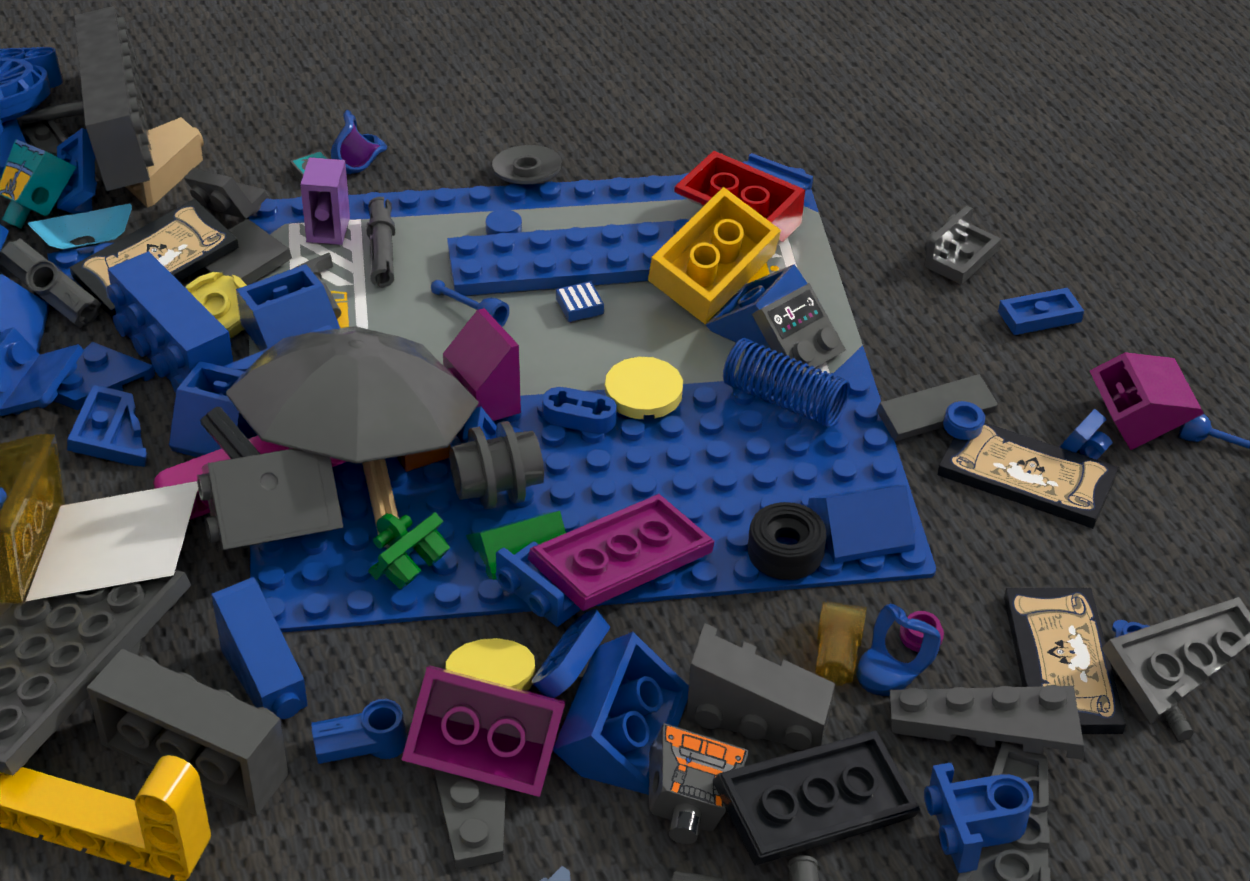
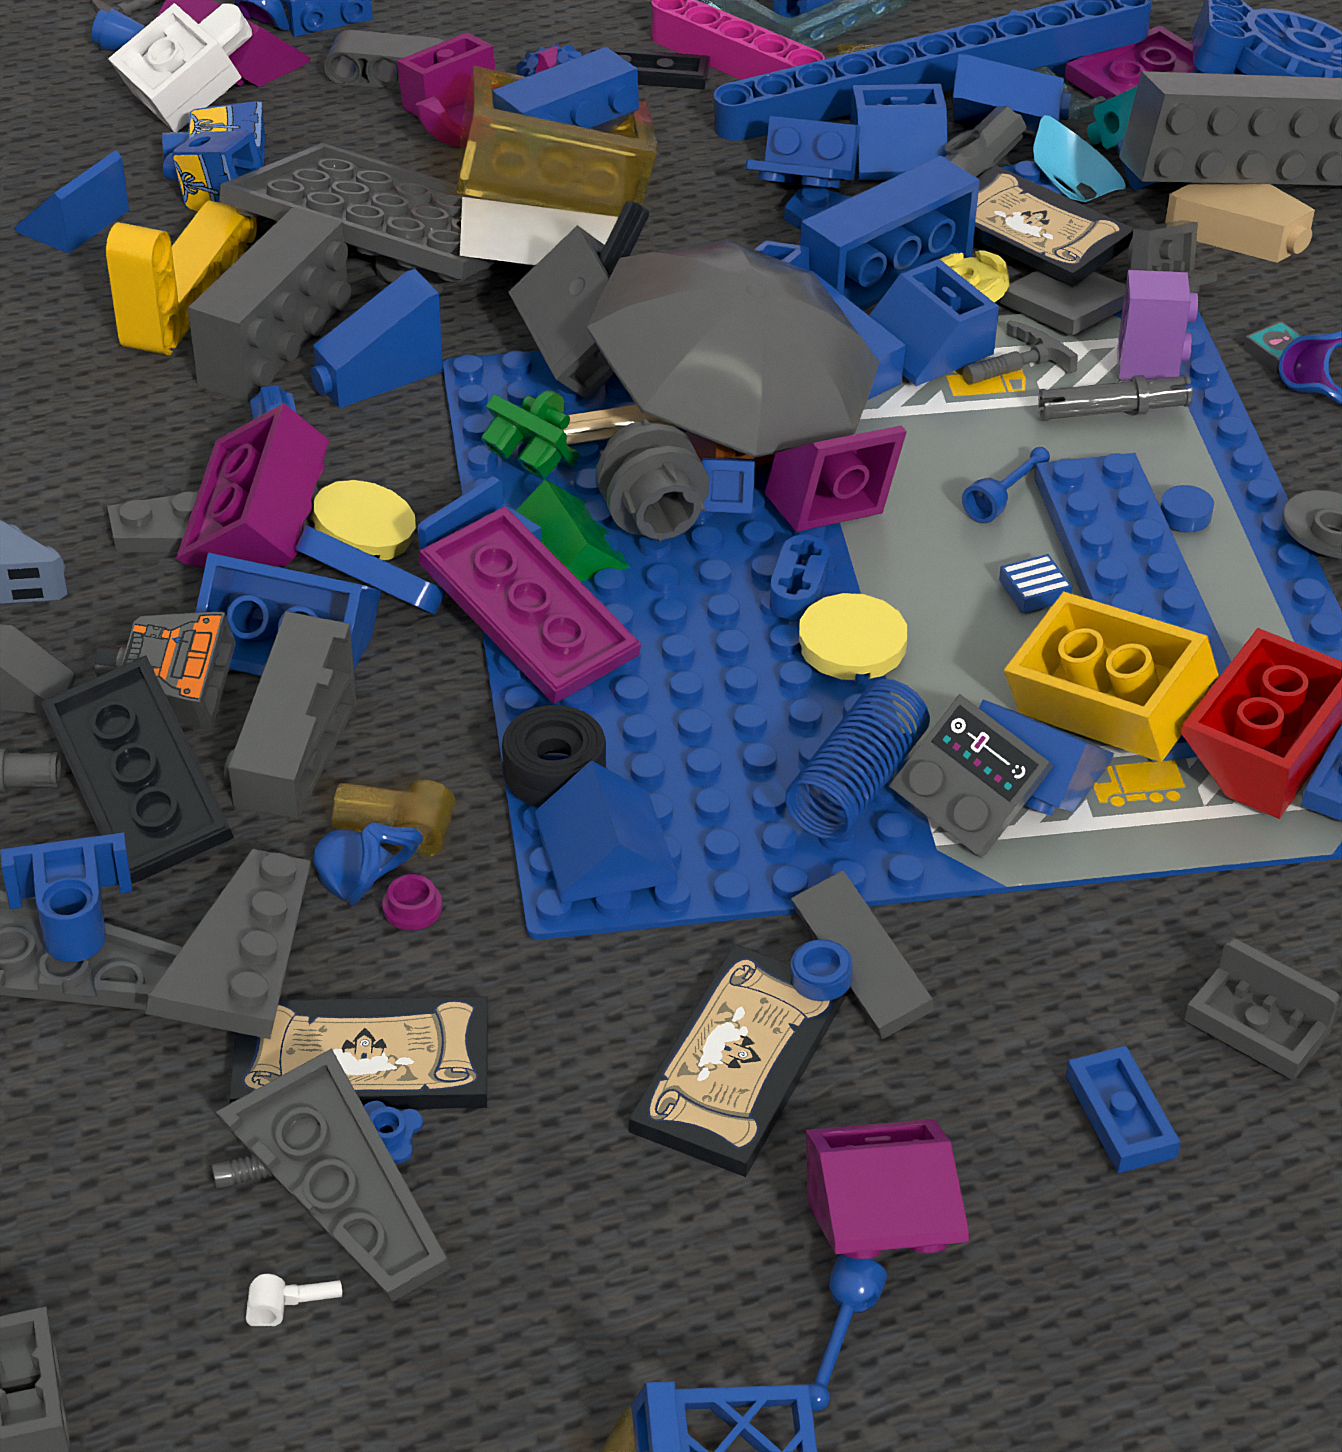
camera: 90 degrees right, 0 degrees up
(108, 428) = (748, 222): blue wing -> none
(1087, 438) = (798, 1113): blue tile -> none

